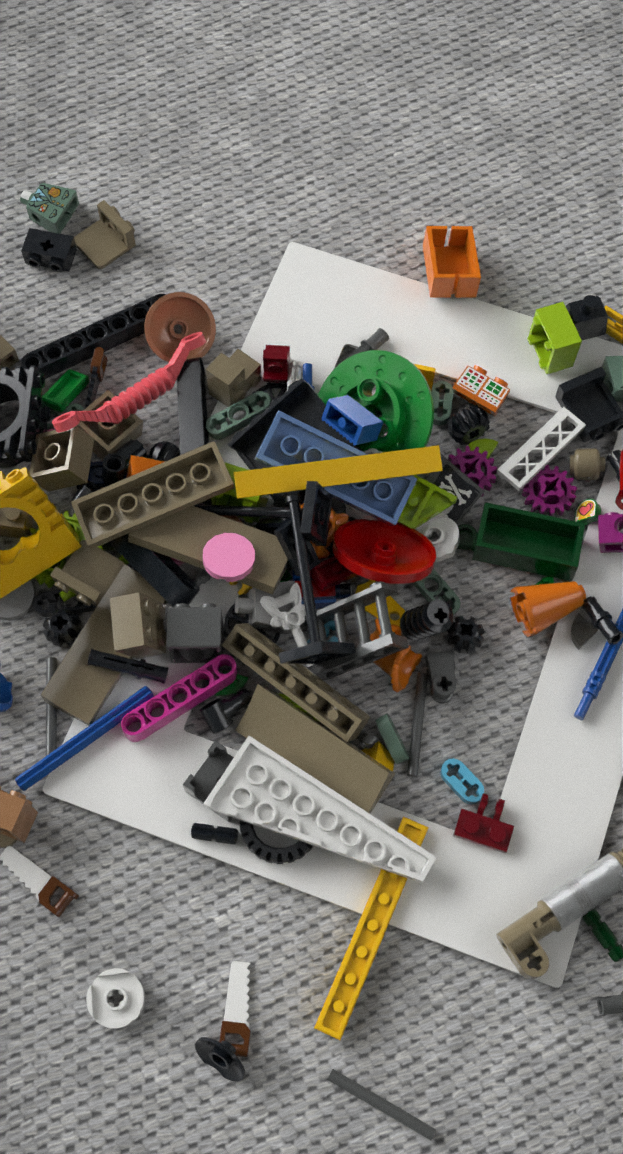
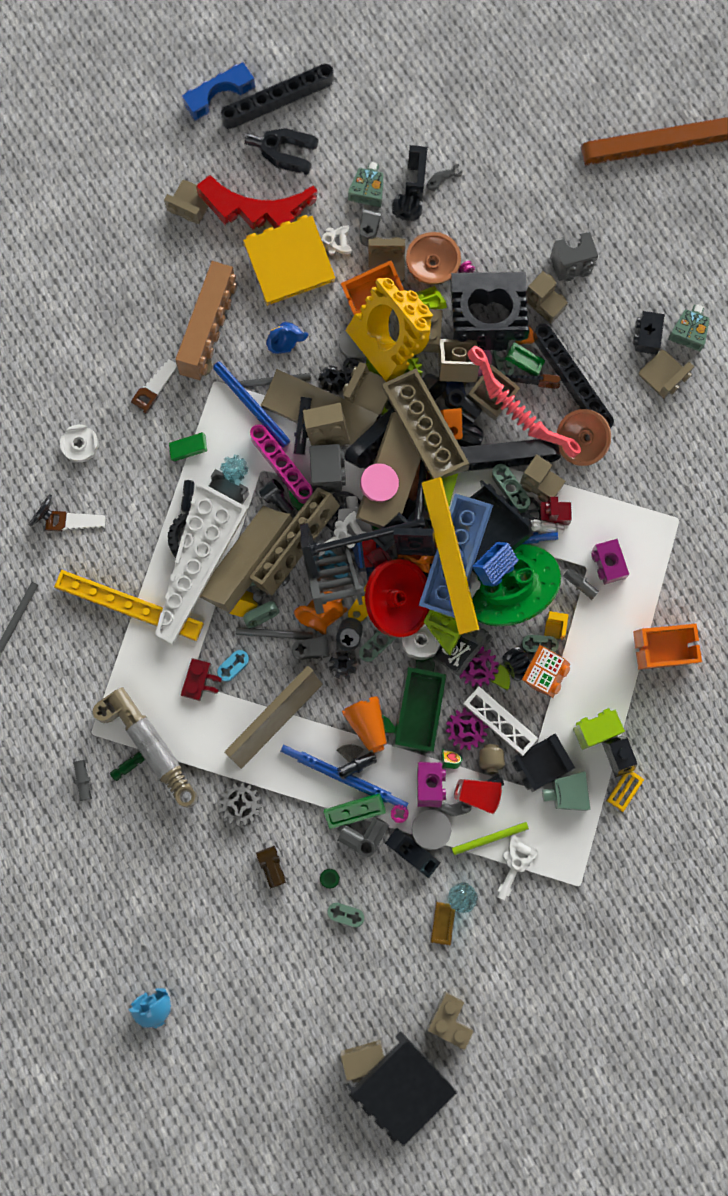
camera: 85 degrees right, 10 degrees up
(139, 831) = (188, 447): none -> green tile
(181, 754) = (235, 473): none -> clear light blue piece
(351, 304) = (611, 550): none -> magenta brick
(537, 725) = (273, 717): none -> dark tan arch

